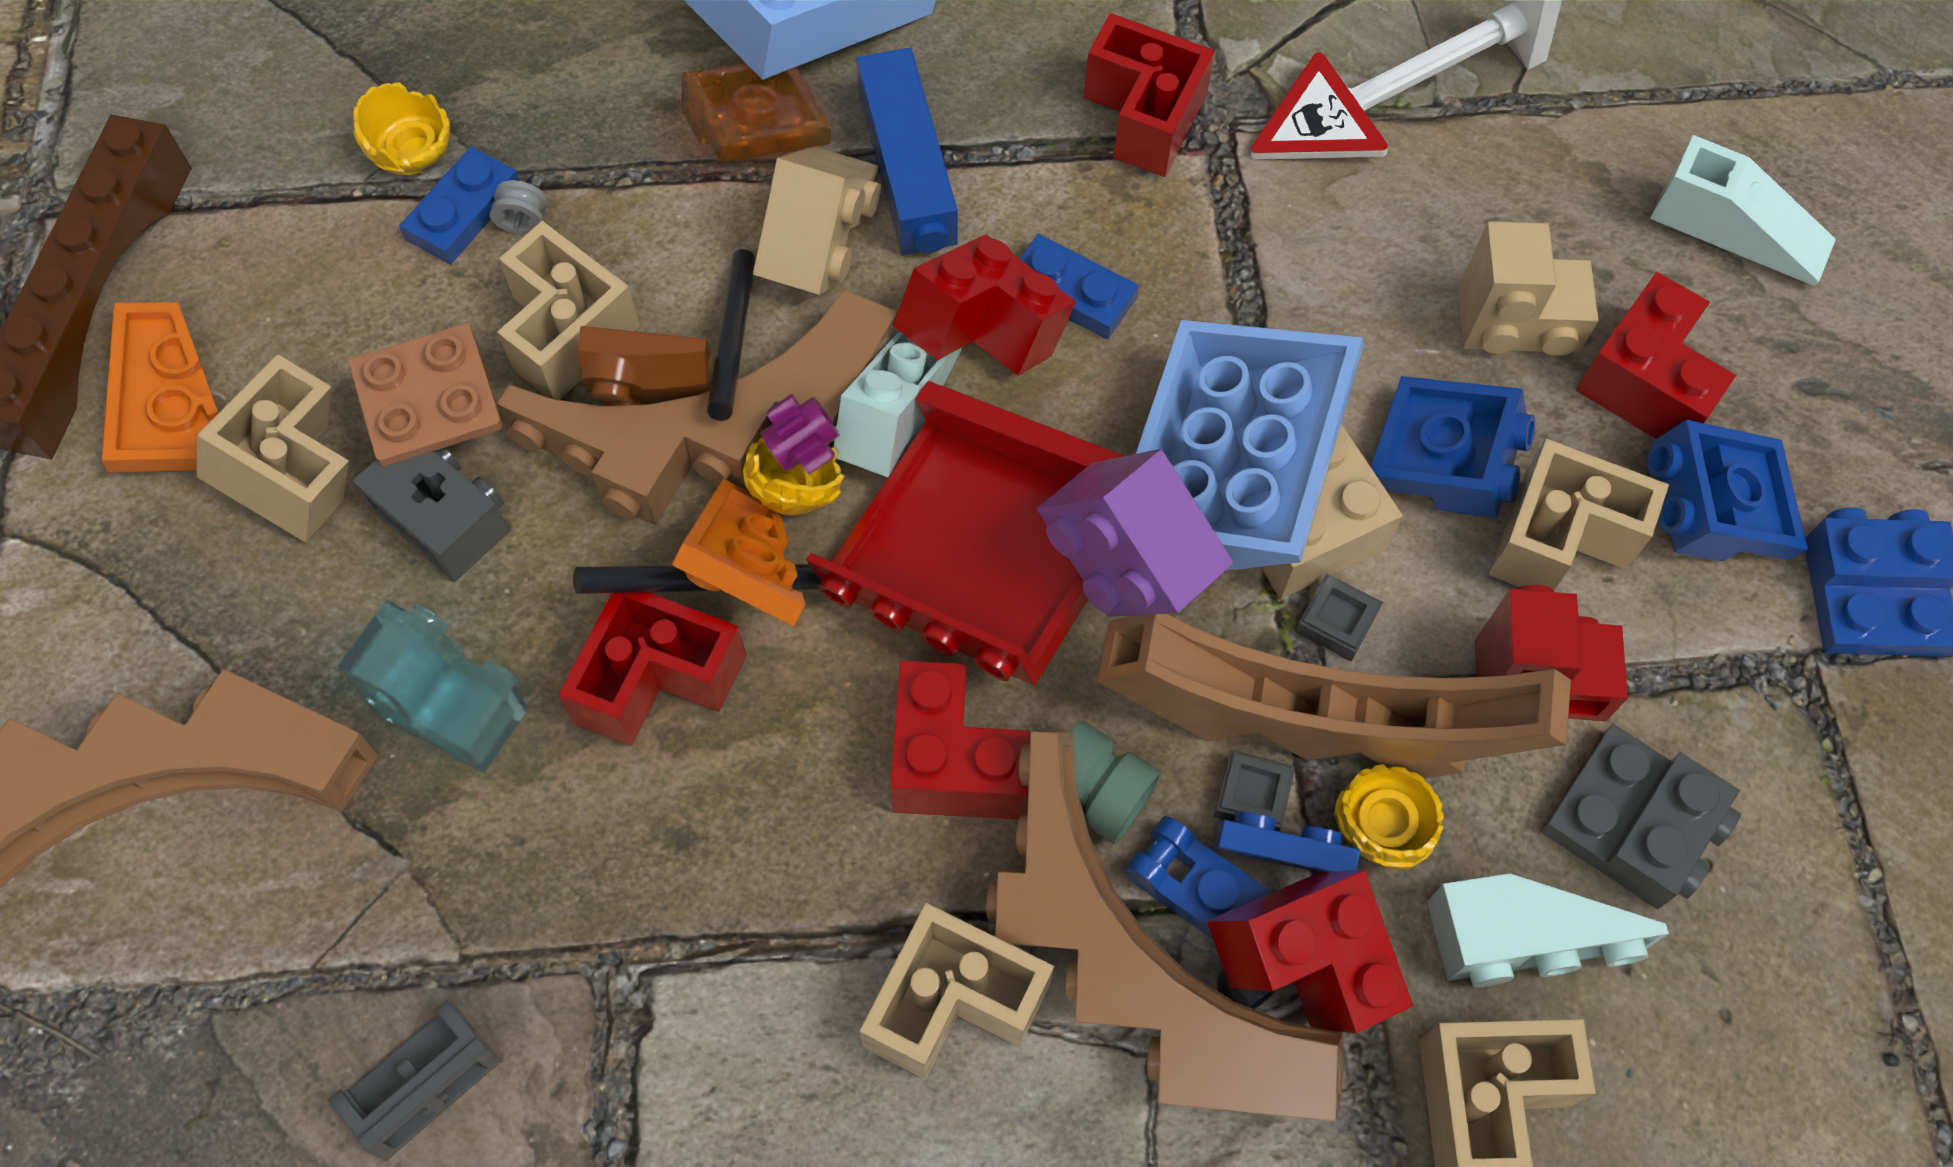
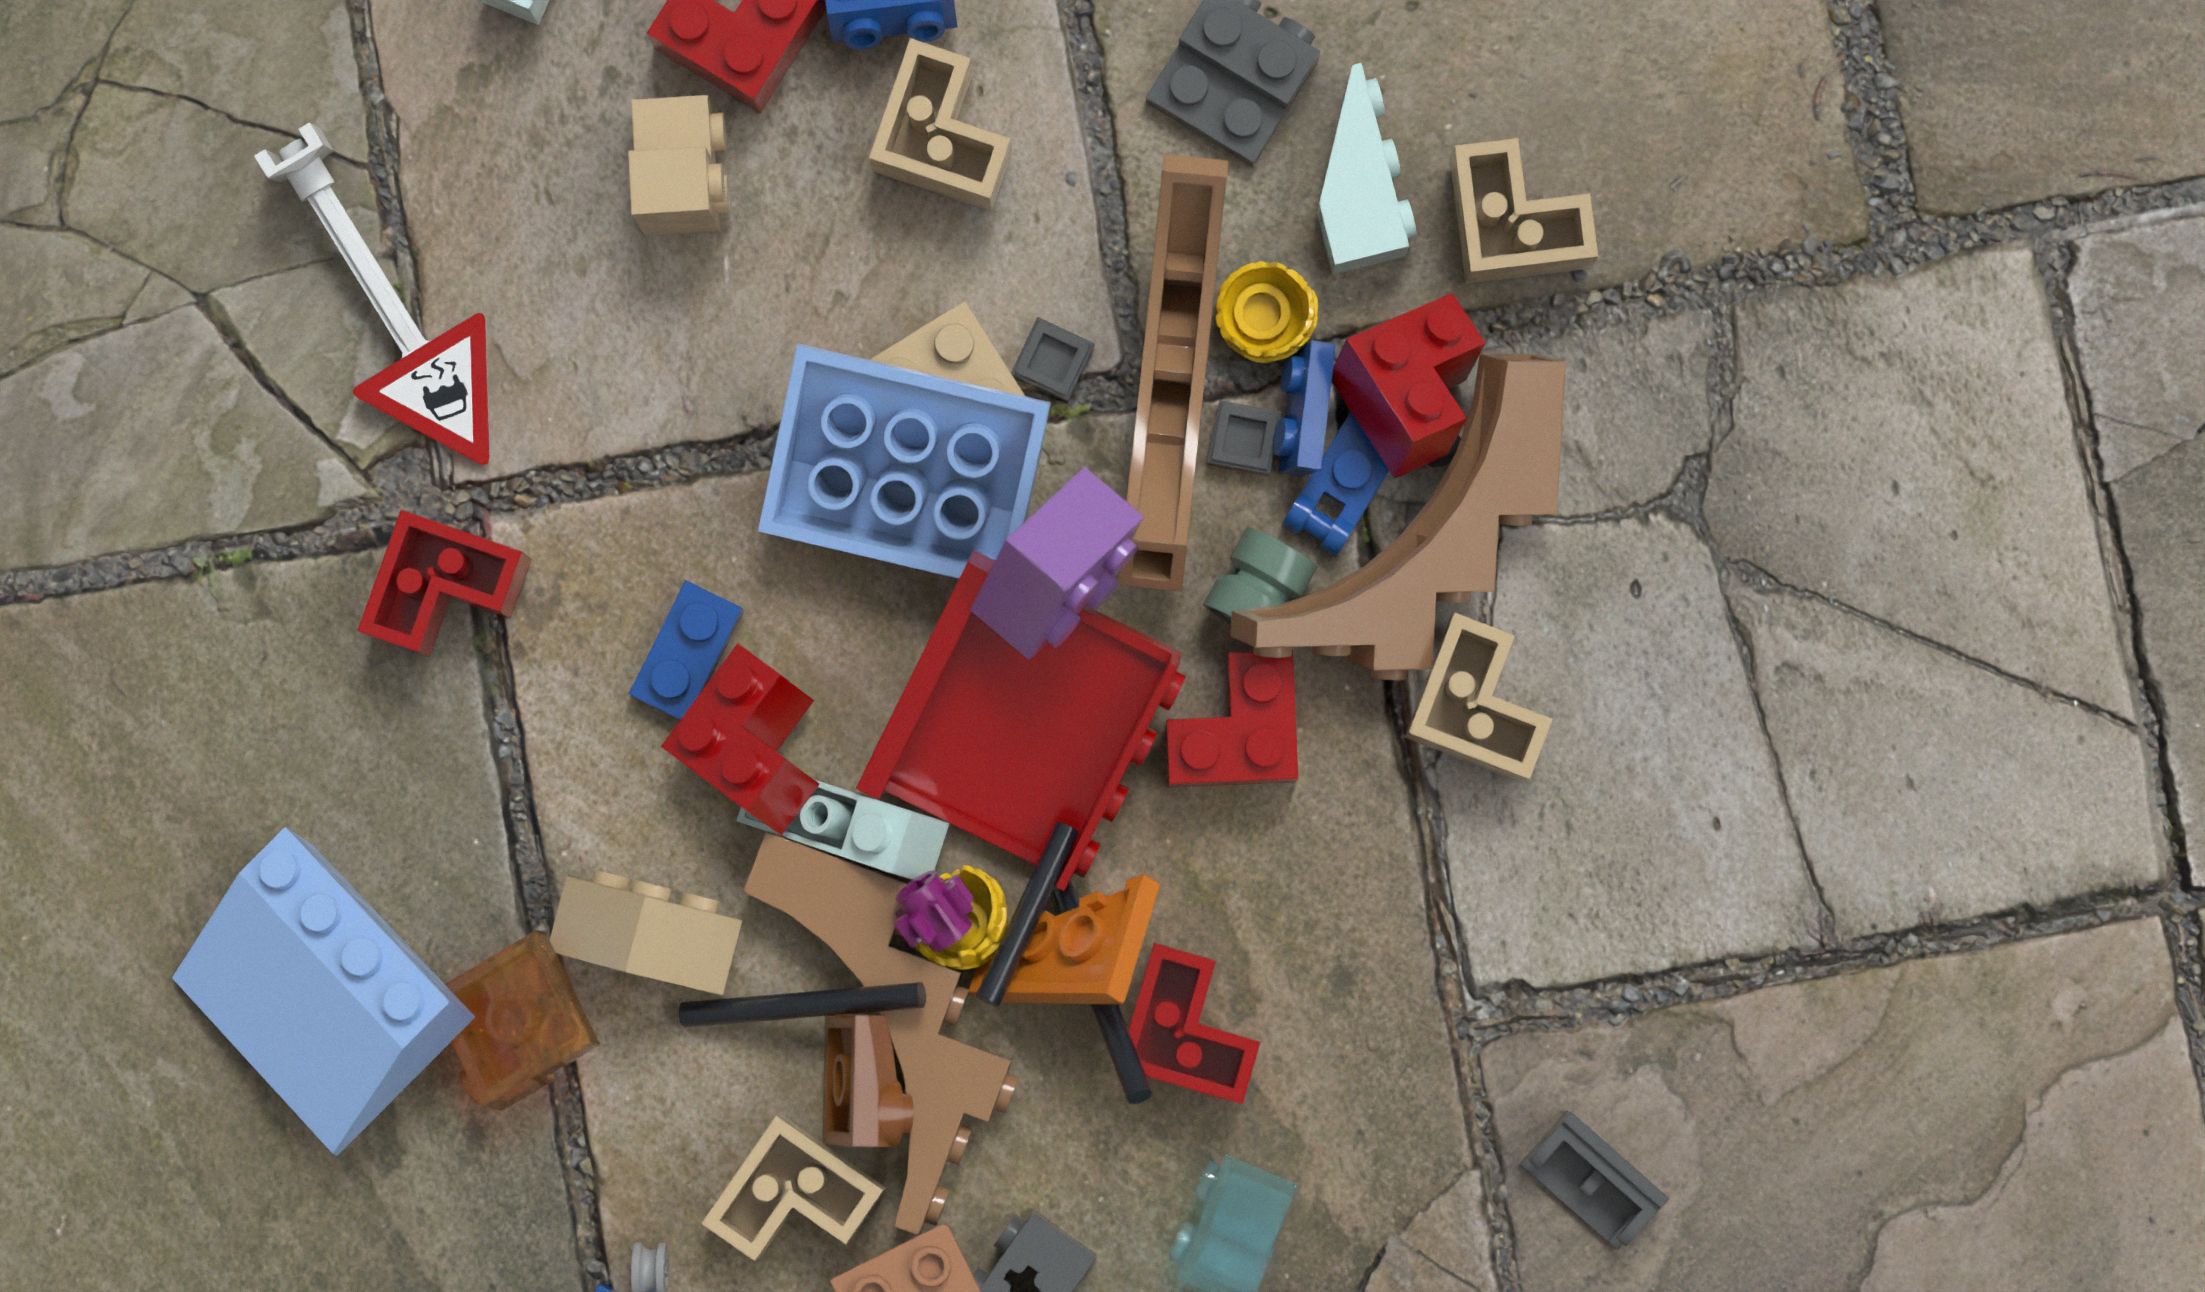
camera: 90 degrees left, 20 degrees up
(784, 521) = (1027, 914): none -> black bar
(907, 152) = (536, 848): blue brick -> none
(1455, 444) = (856, 247): blue plate -> none
(1542, 632) = (1096, 156): red brick -> none

